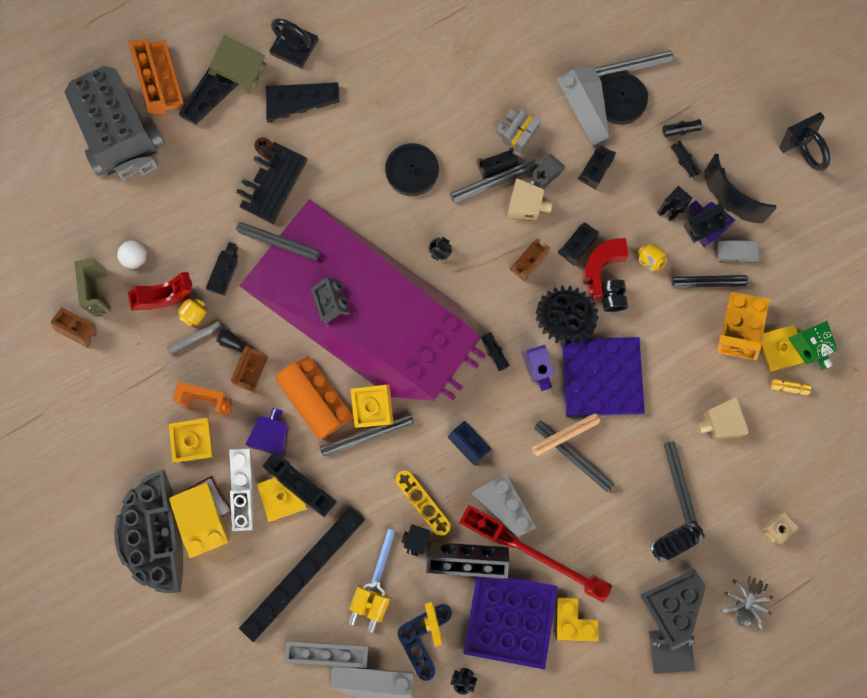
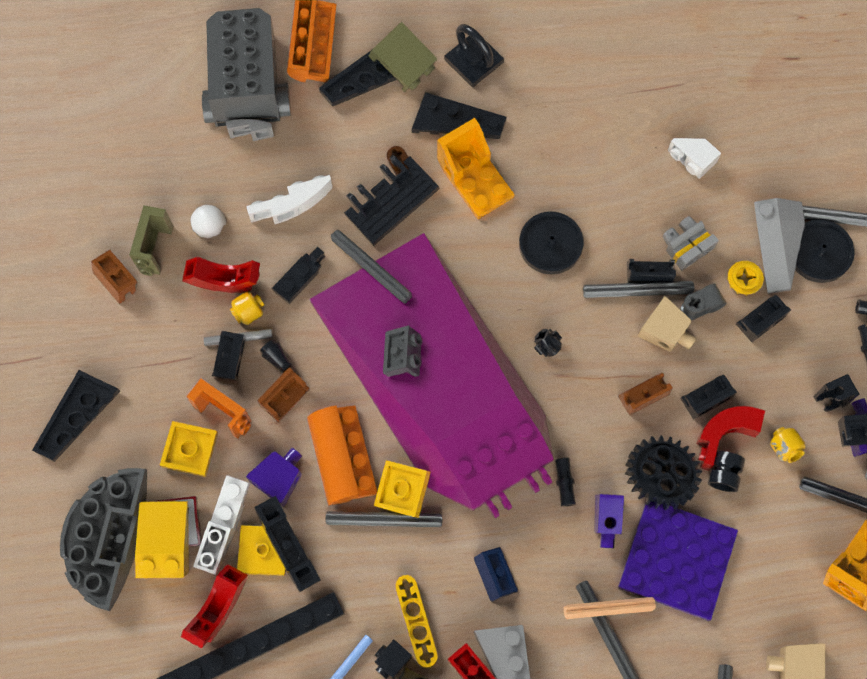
camera: 20 degrees right, 5 degrees down
(87, 447) = (75, 412): none -> black wing
(193, 355) = (229, 355): none -> black hinge
(199, 206) = (300, 199): none -> white slope
(263, 555) = (216, 608): none -> red arch
(321, 131) = (468, 166): none -> light orange bracket
(496, 58) = (694, 154): none -> white slope
(575, 134) = (752, 271): none -> yellow gear

